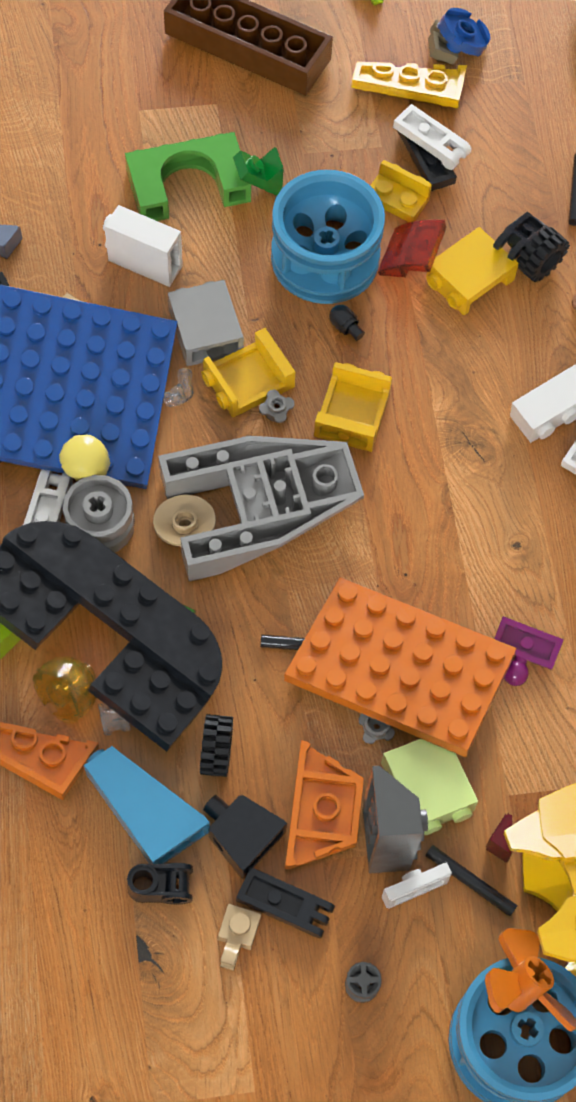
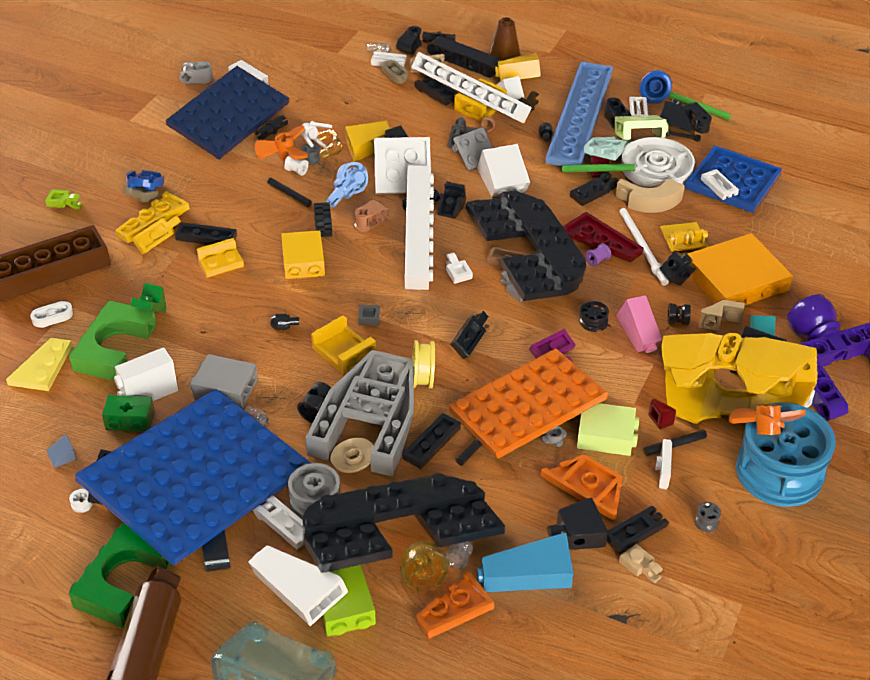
camera: 55 degrees left, 20 degrees down
(84, 457) = (273, 474): light yellow hair -> none
(93, 263) = (128, 413): none -> green brick
(110, 139) = (43, 366): none -> light yellow wing
(163, 883) = (585, 584): black piece -> none
(188, 94) = (51, 314): none -> white plate
(216, 745) = (518, 507): black tyre -> none
(227, 428) = (312, 401): none -> black wheel
(248, 374) = (278, 378): yellow panel -> none
(269, 591) = (431, 440): none -> black plate
(276, 414) = (310, 378): light grey plate -> none
(320, 265) = (226, 313): dark azure wheel -> none
(370, 510) = (423, 363): none -> light yellow wheel
(382, 102) = (155, 234): none -> yellow hinge
(391, 823) = (630, 438): dark grey slope -> none
(412, 247) = (265, 268): clear red slope -> none
(425, 404) = (369, 315): none -> dark grey plate
(432, 136) = (203, 222): white plate -> none
(477, 534) = (469, 334): none -> black hinge
(519, 233) = (303, 222): black hinge -> none

